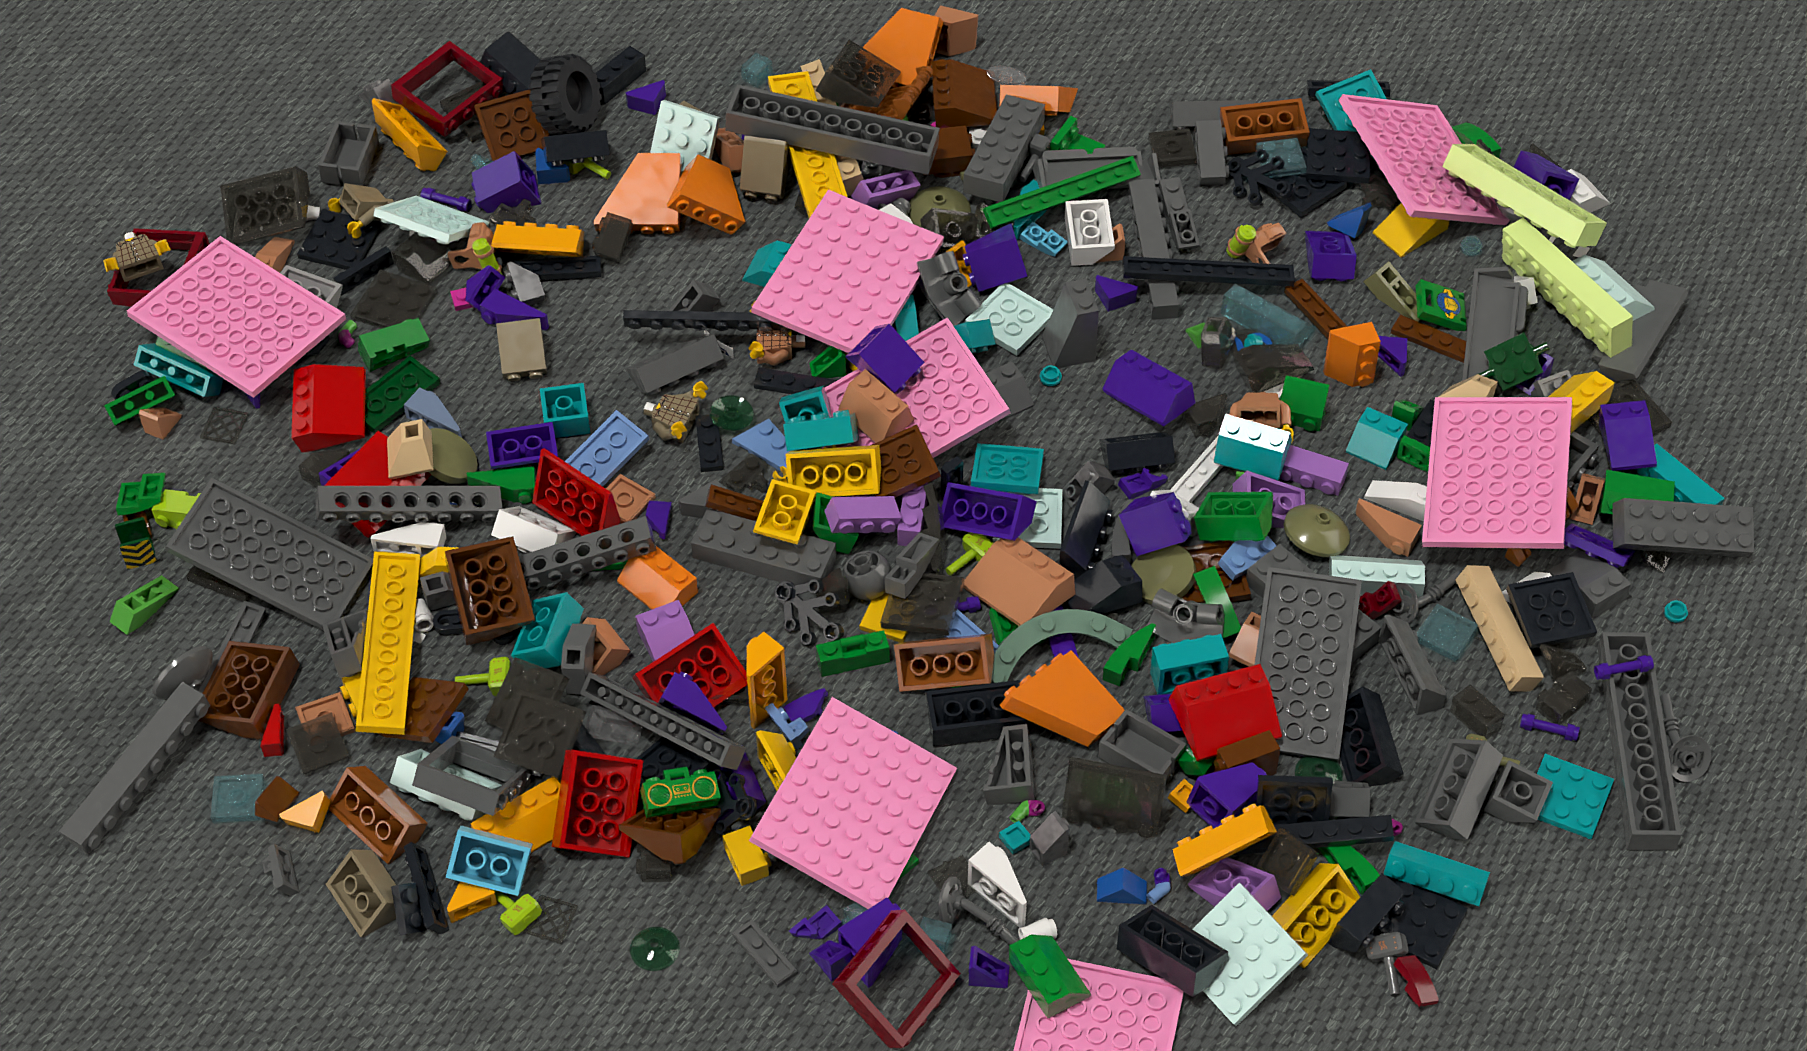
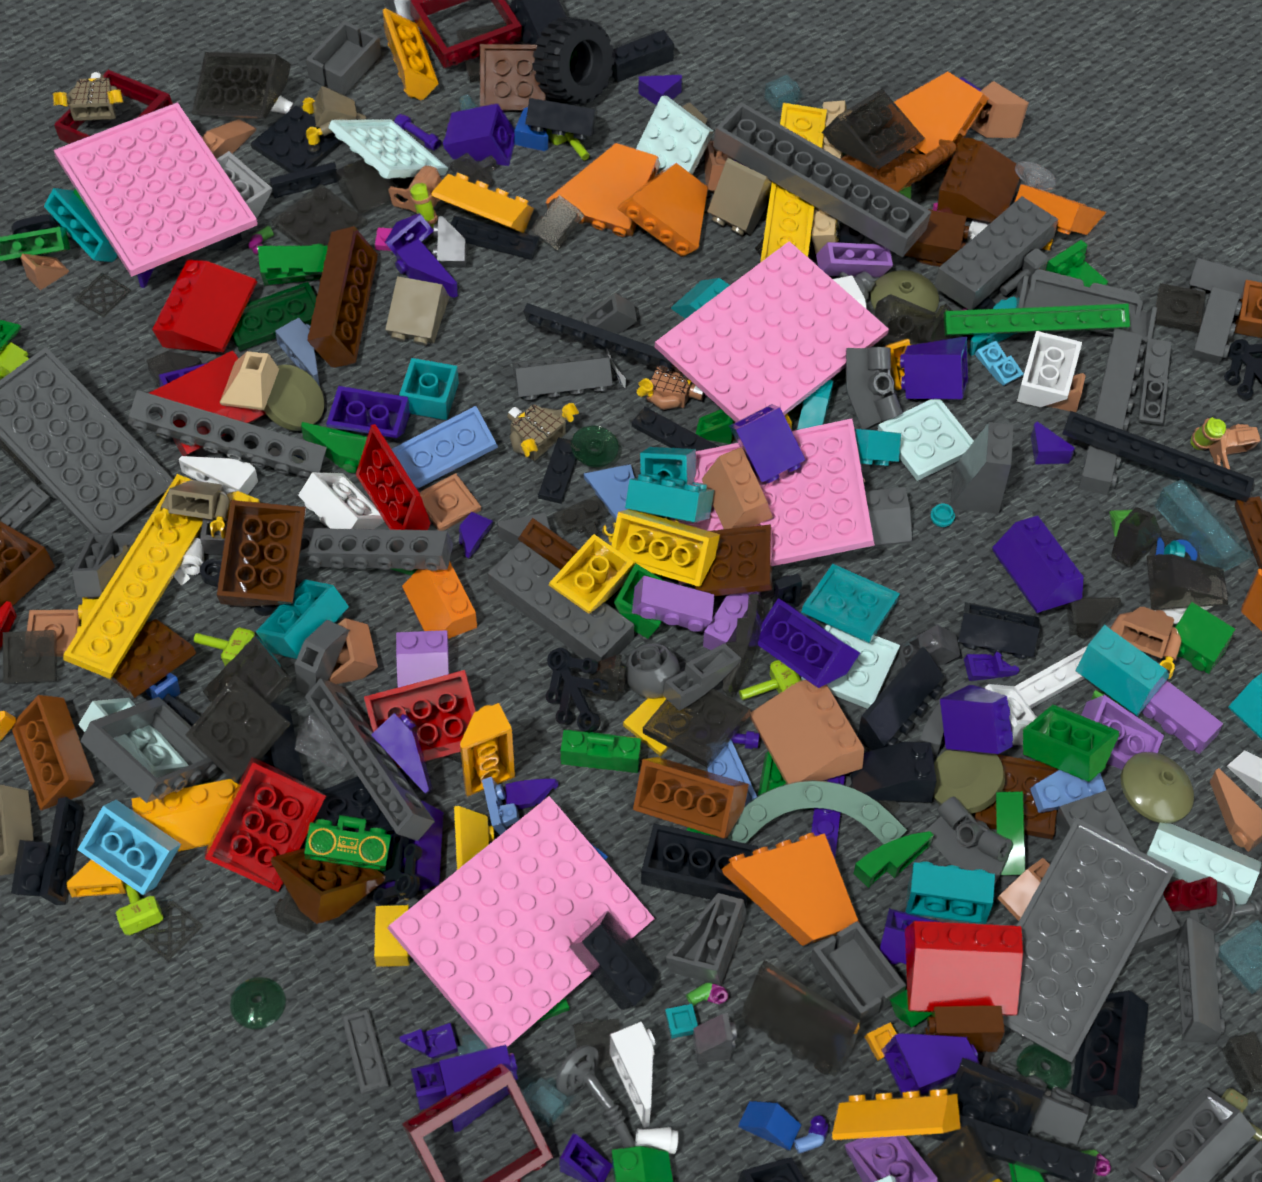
camera: 20 degrees right, 5 degrees up
(409, 564) = (195, 500): none -> dark tan torso
(451, 358) = (343, 297): none -> reddish brown brick
(942, 809) = (615, 961): none -> black slope

